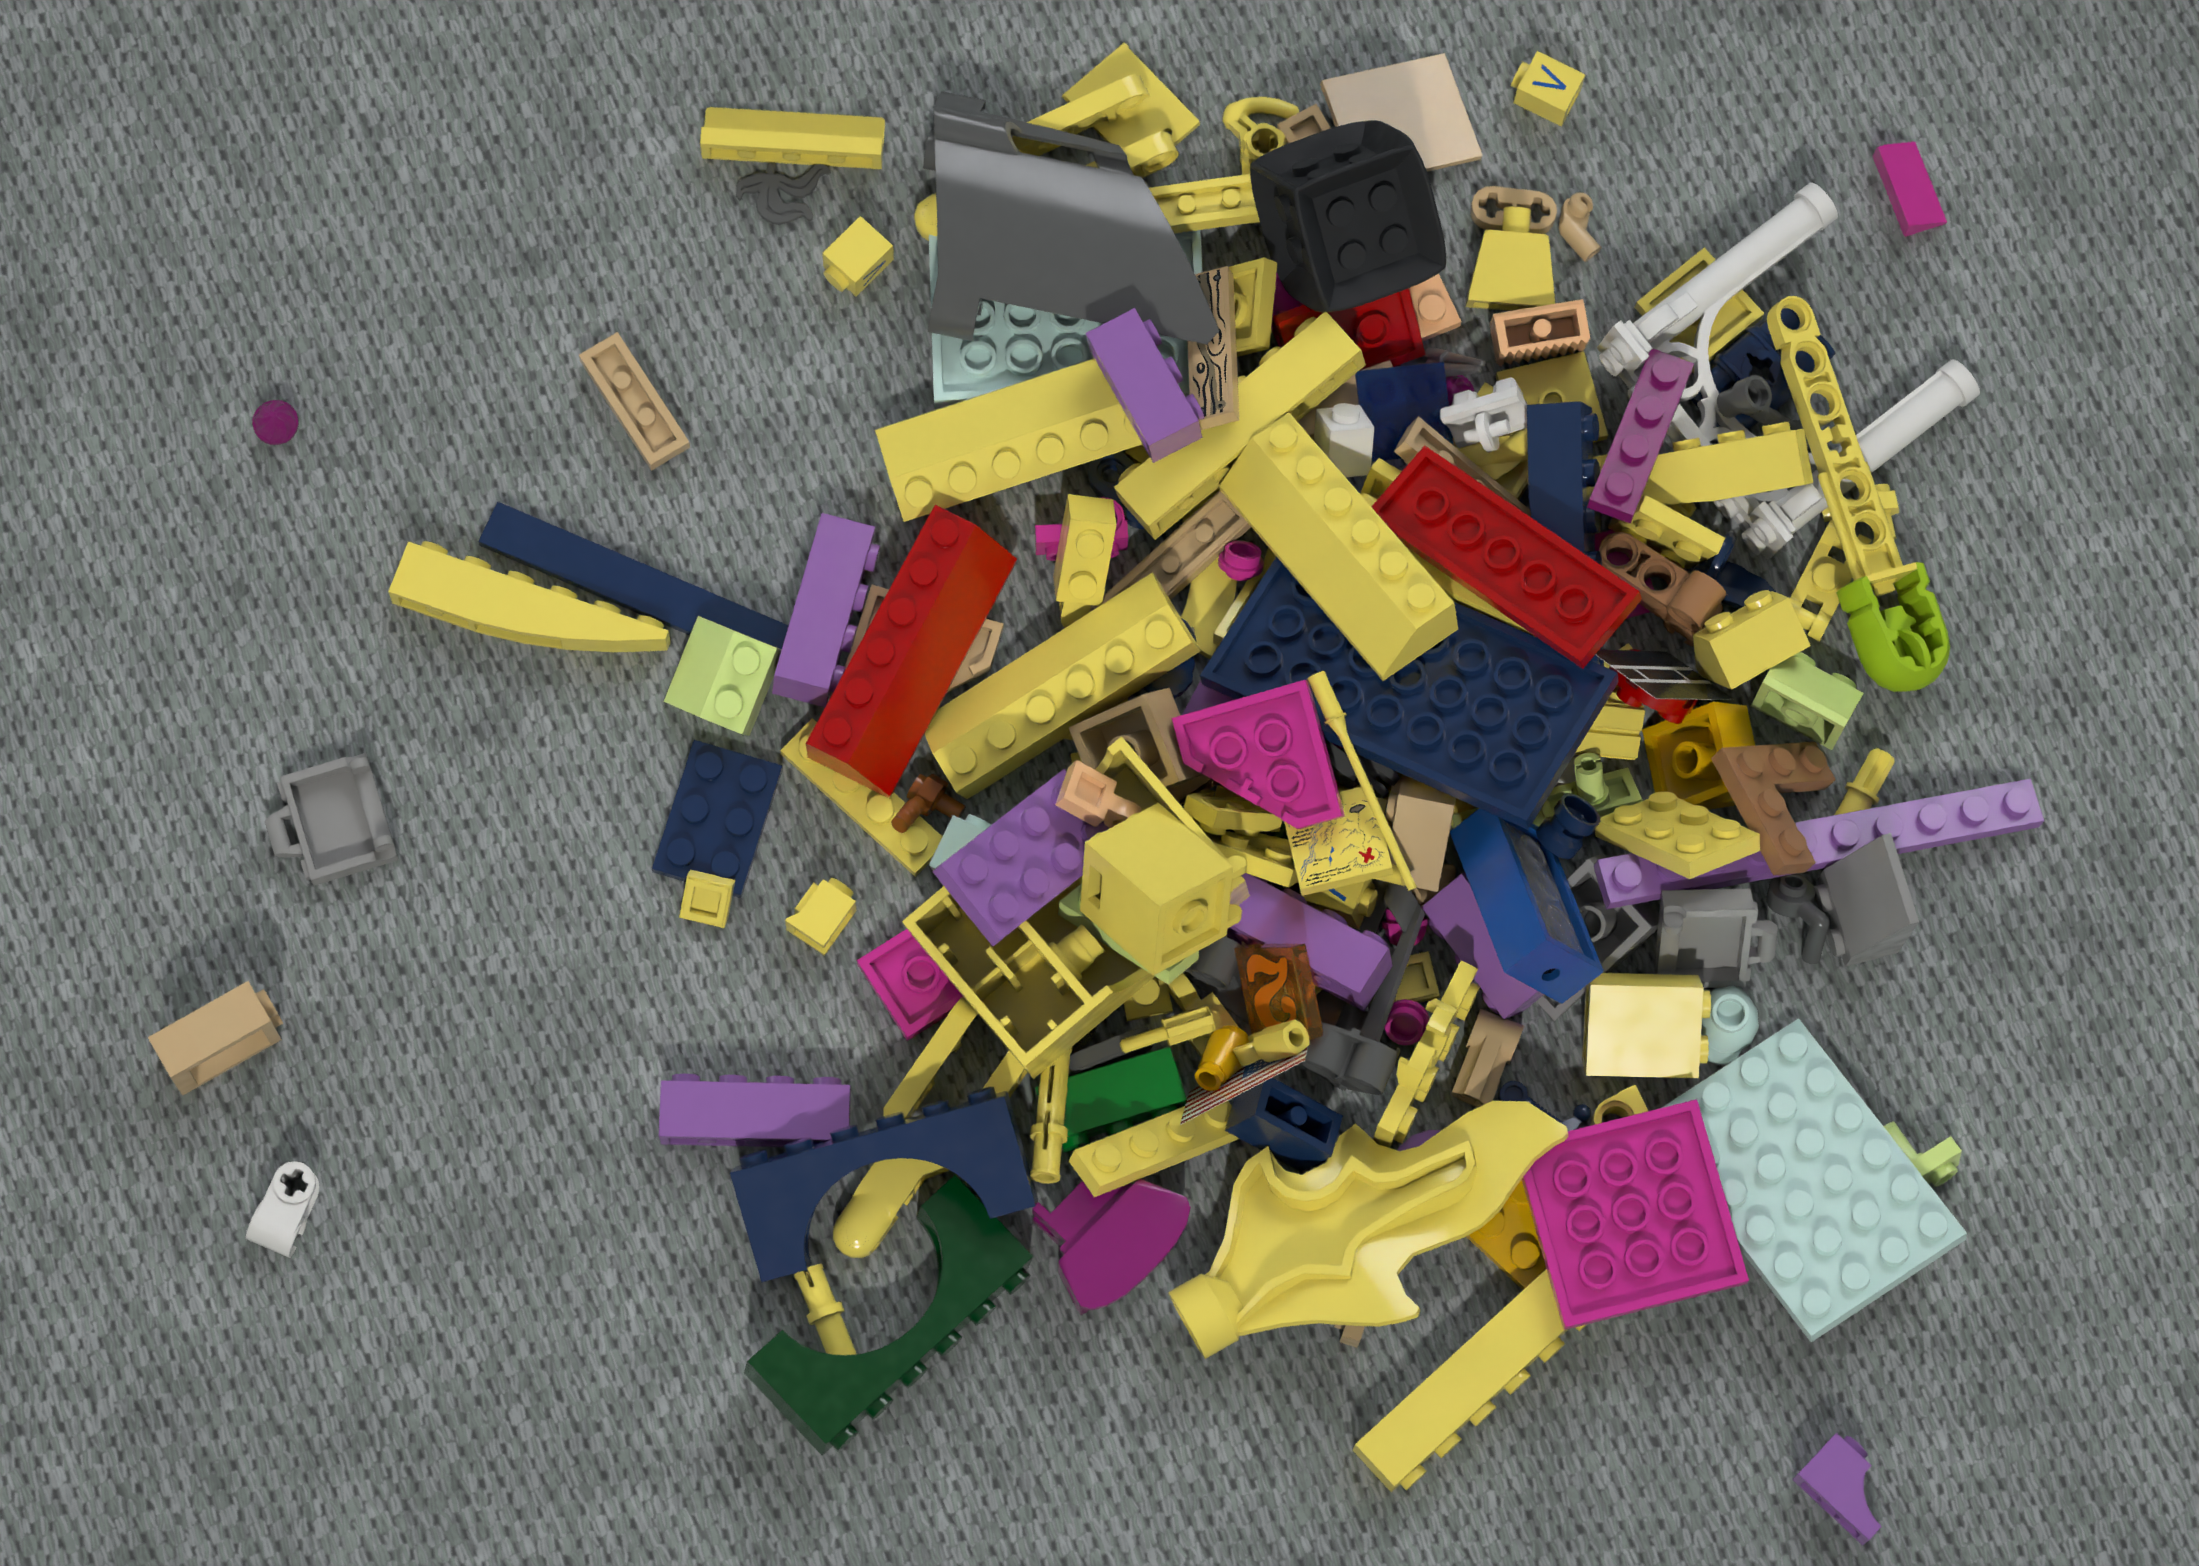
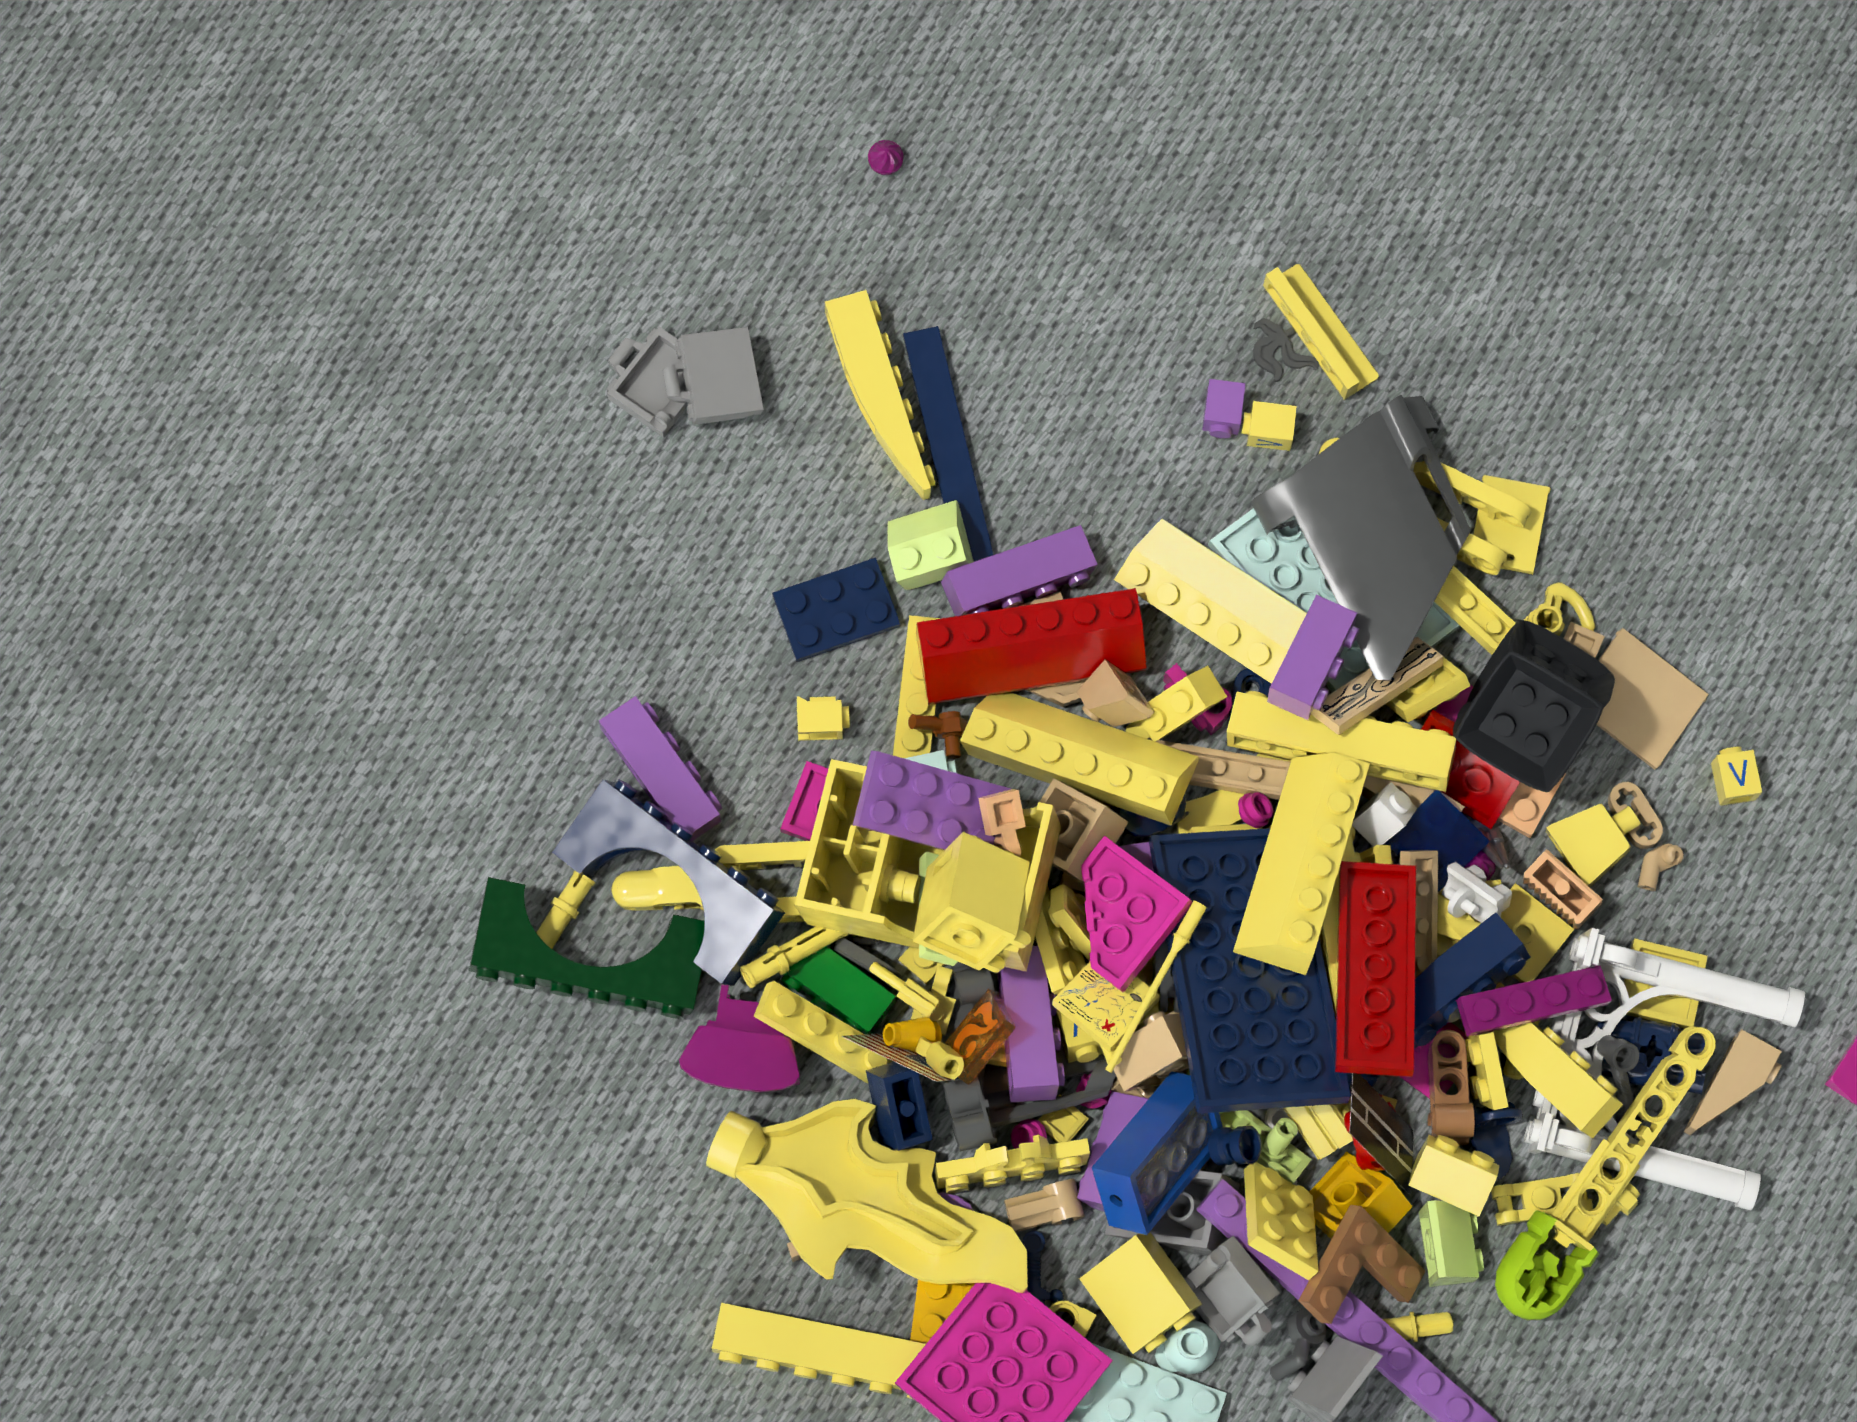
camera: 55 degrees right, 0 degrees up
(217, 1037) = (461, 409): tan window -> none
(281, 1215) = (384, 531): white piece -> none
(381, 756) = (717, 376): none -> light grey piece
(634, 401) = (1068, 360): tan plate -> none
(707, 898) = (778, 640): light yellow tile -> none
(803, 288) = (1223, 408): none -> medium lavender brick
(1026, 610) = (1113, 697): none -> tan slope
(1840, 302) = (1740, 1073): none -> tan slope

